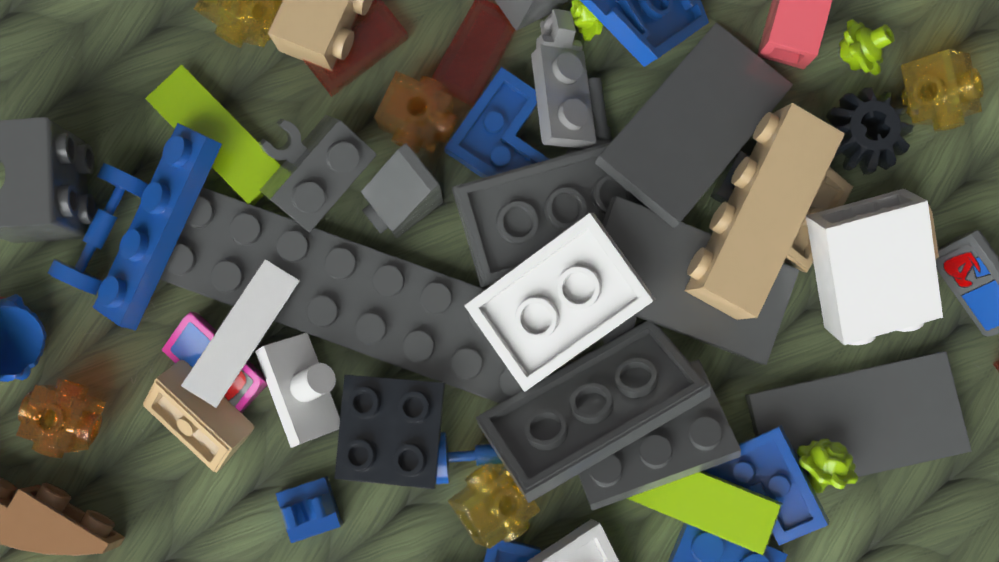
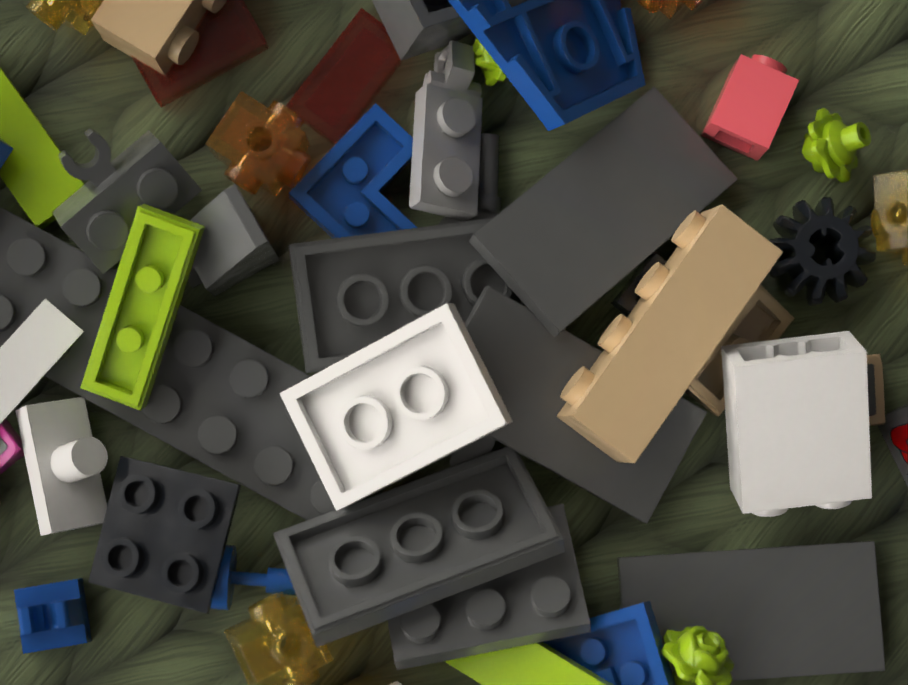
camera: 10 degrees right, 0 degrees up
(344, 253) = (142, 306): none -> lime tile

